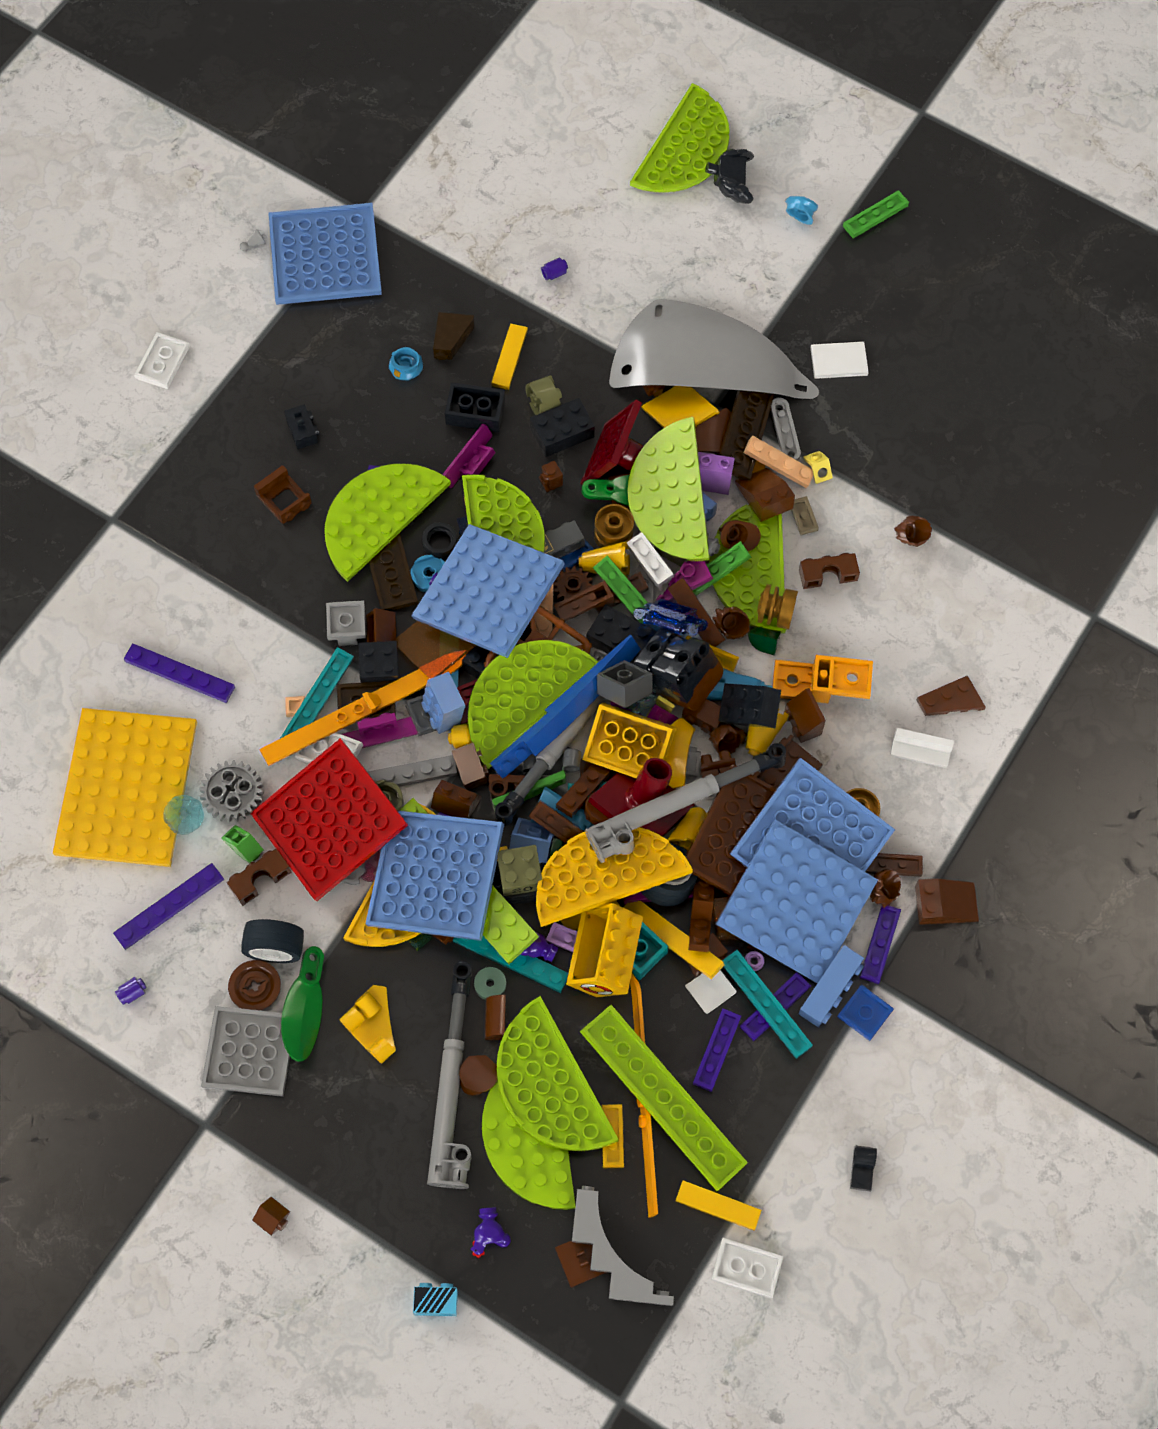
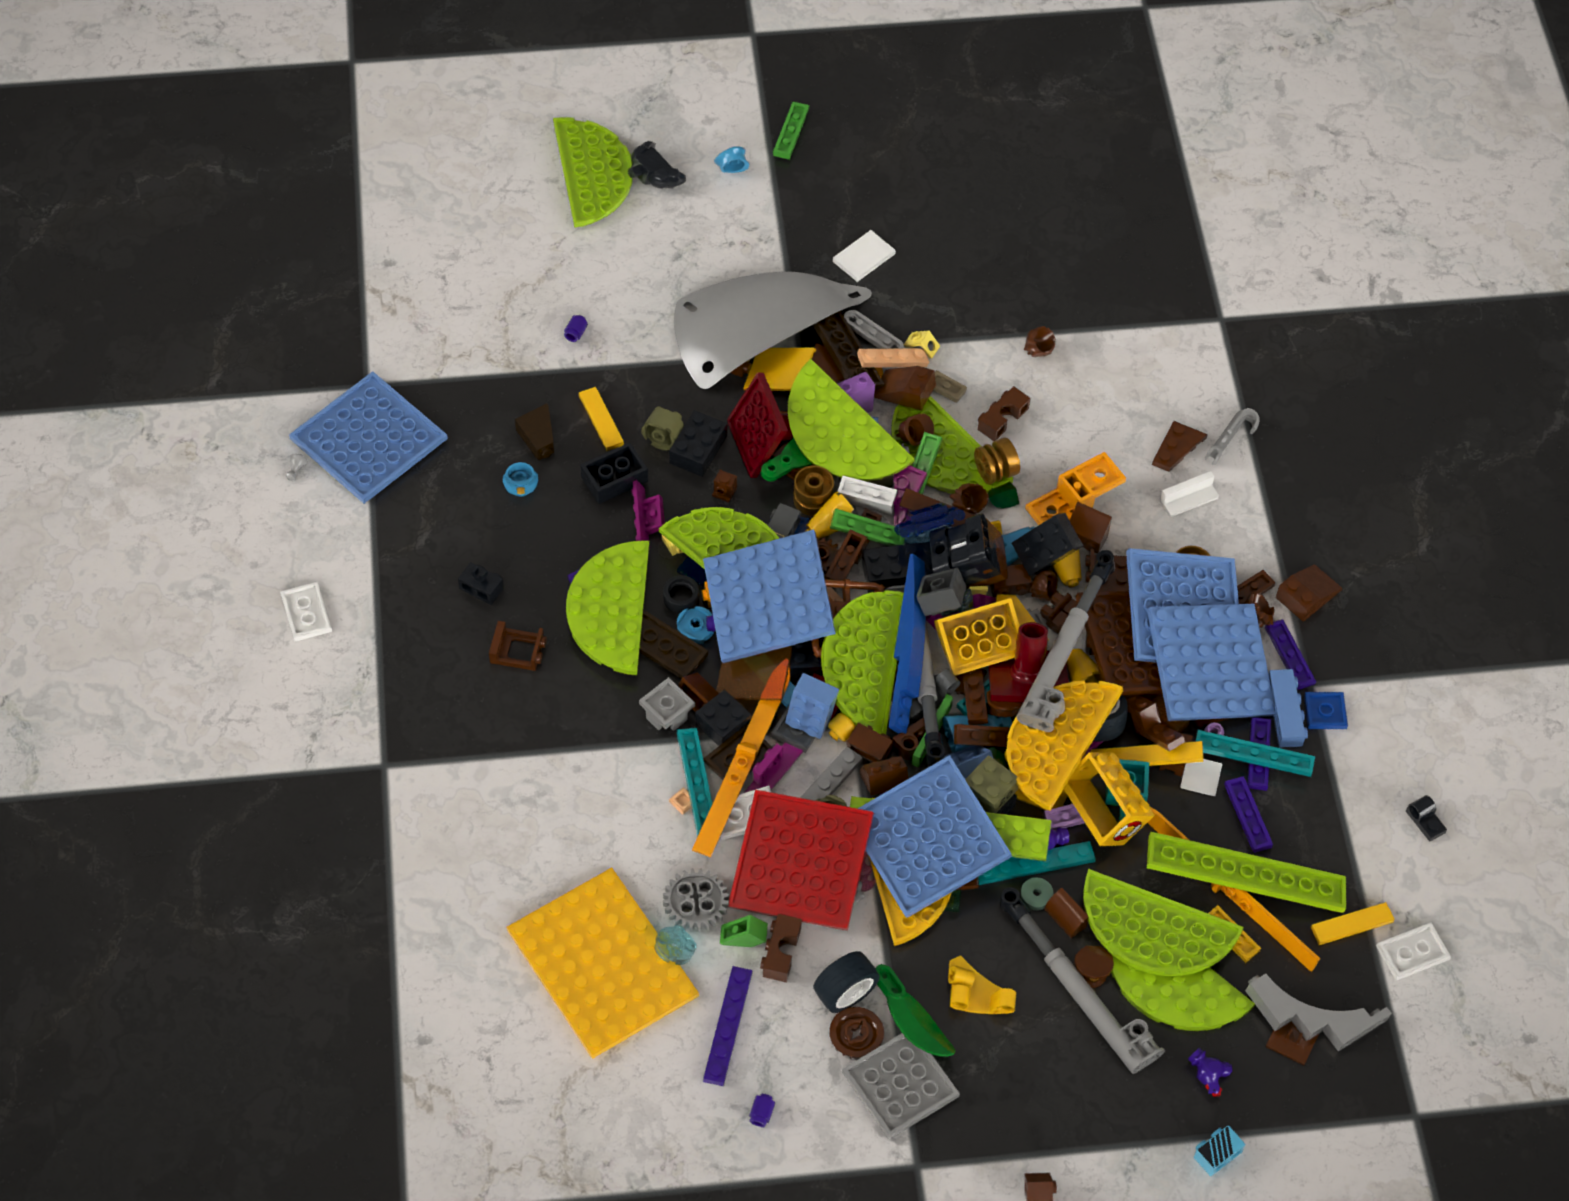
camera: 40 degrees left, 10 degrees down
(179, 673) = (561, 843): dark purple plate -> none
(1007, 718) = (1229, 432): none -> light grey piece

